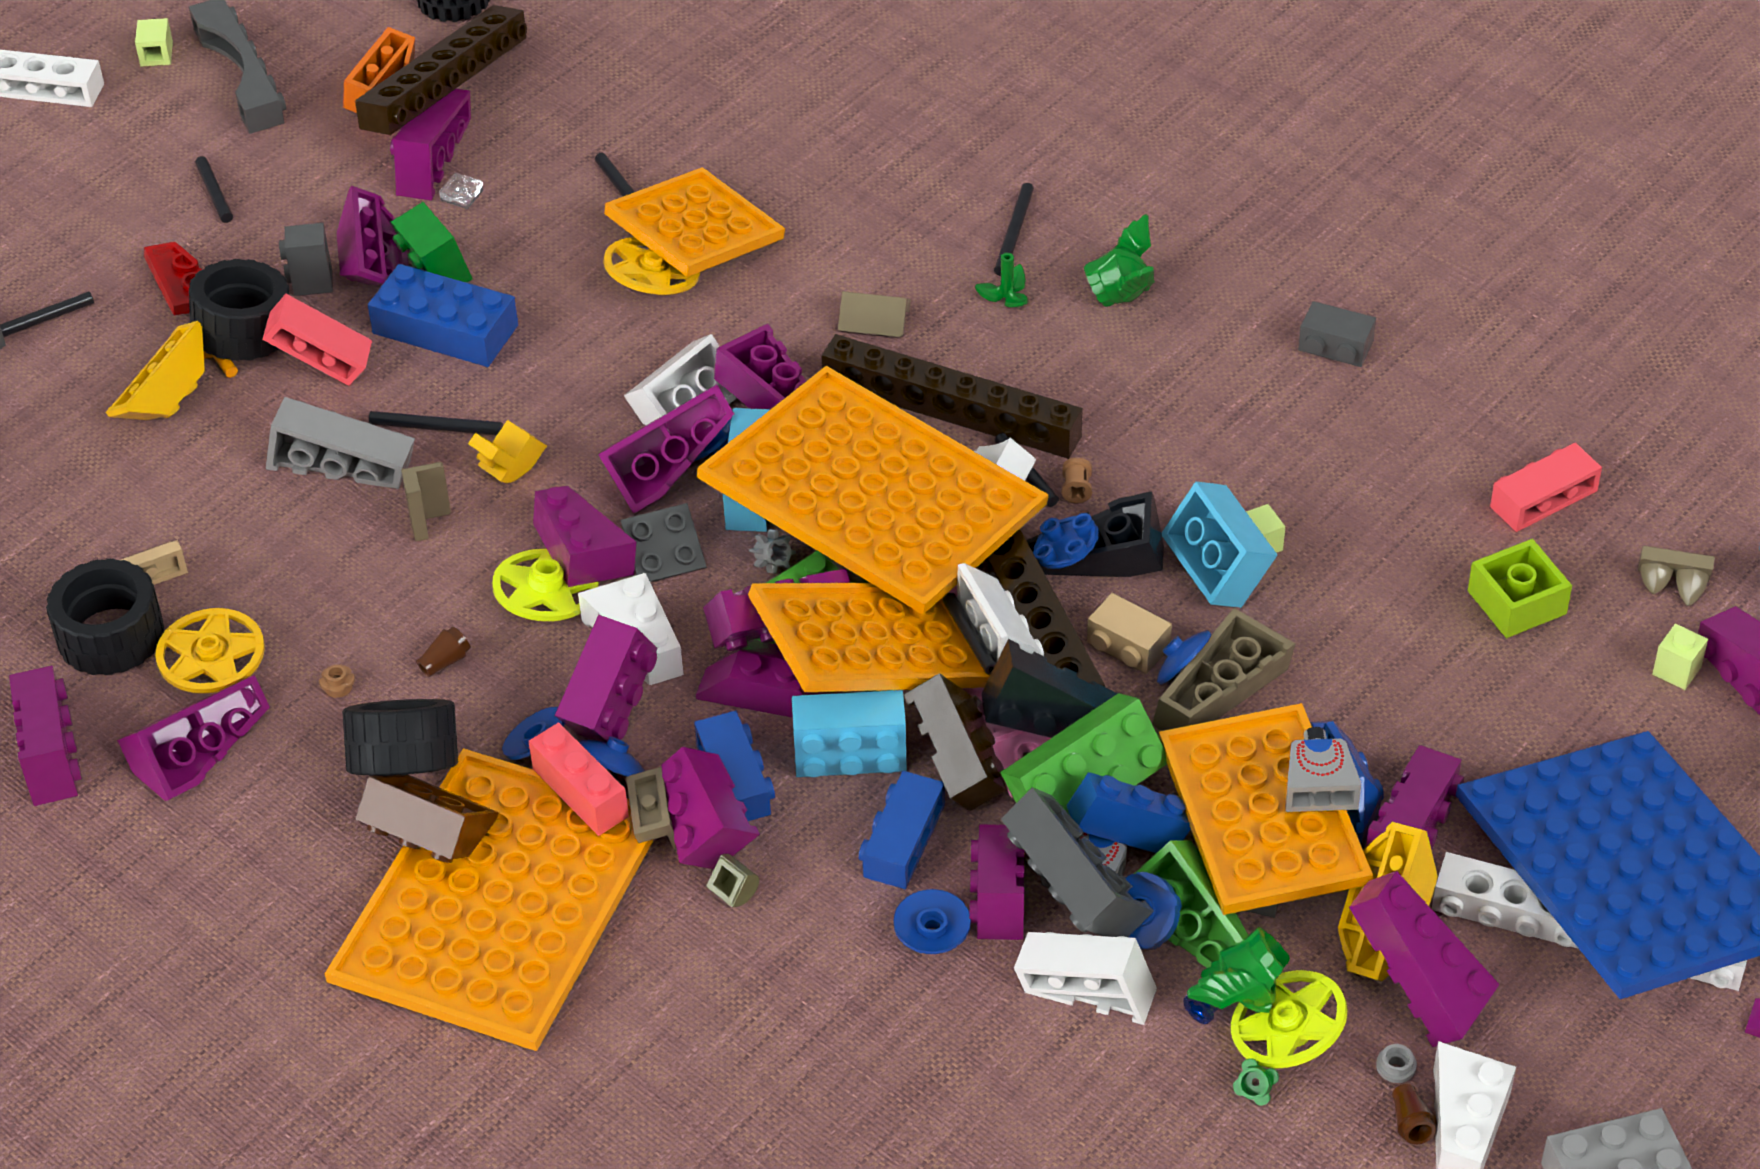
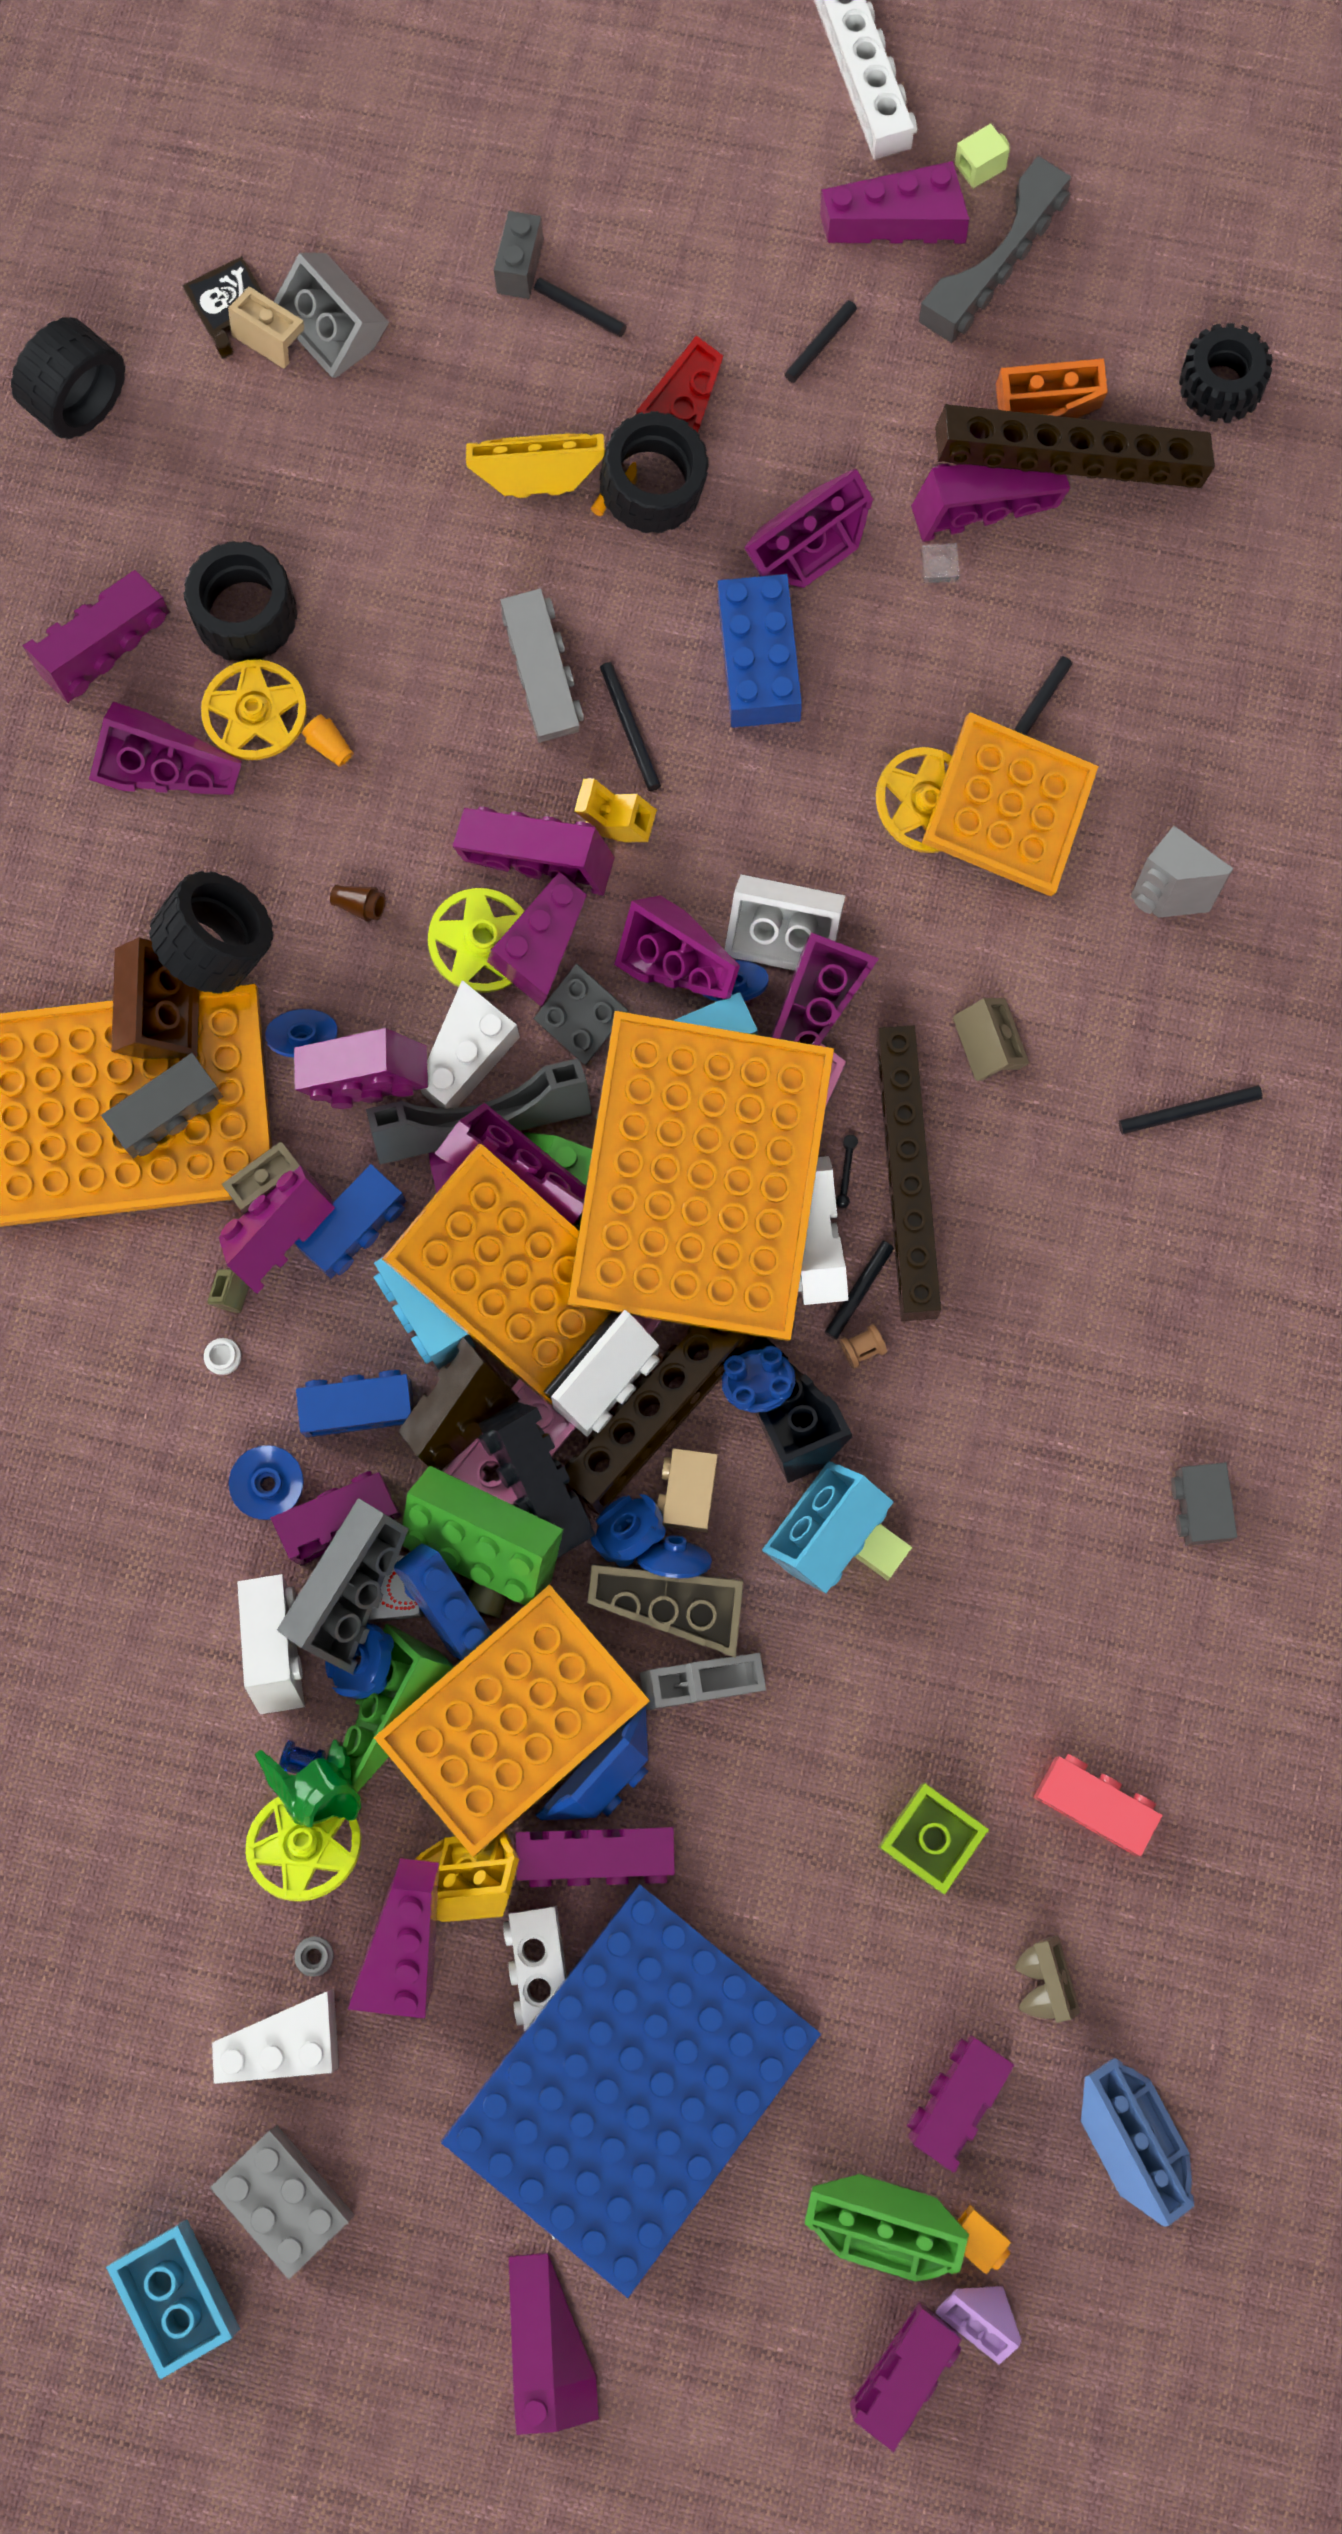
camera: 65 degrees right, 30 degrees up
(151, 98) = (897, 207): none -> magenta wedge
(161, 562) = (330, 593): tan panel -> none
(280, 616) = (327, 740): none -> light orange cone
(307, 258) = (753, 489): dark grey brick -> none
(317, 339) = (647, 565): coral brick -> none
(337, 681) = (288, 839): medium nougat plate -> none
(425, 496) = (503, 773): dark tan panel -> none
(429, 244) = (830, 587): green slope -> none
(491, 511) = (534, 846): none -> magenta wedge
(531, 847) = (162, 1106): none -> dark grey brick
(578, 779) = (252, 1104): coral brick -> none
(613, 755) = (291, 1122): blue dish -> none
(683, 687) = (548, 1097): none -> dark grey arch
(789, 914) = (222, 1356): none -> white plate
(832, 141) = (1180, 878): none -> light grey slope
(1011, 282) = (1099, 1143): green plant -> none
(1121, 272) = (1168, 1249): green helmet -> none
(1154, 671) = (625, 1545): none -> blue plate
(1245, 1086) = (231, 1842): plate -> none
(1303, 680) = (703, 1681): none -> light grey slope
(1321, 774) = (555, 1759): light grey torso -> none
(1413, 1116) = (262, 1994): reddish brown cone -> none
(1680, 656) = (928, 2030): yellowish green brick -> none

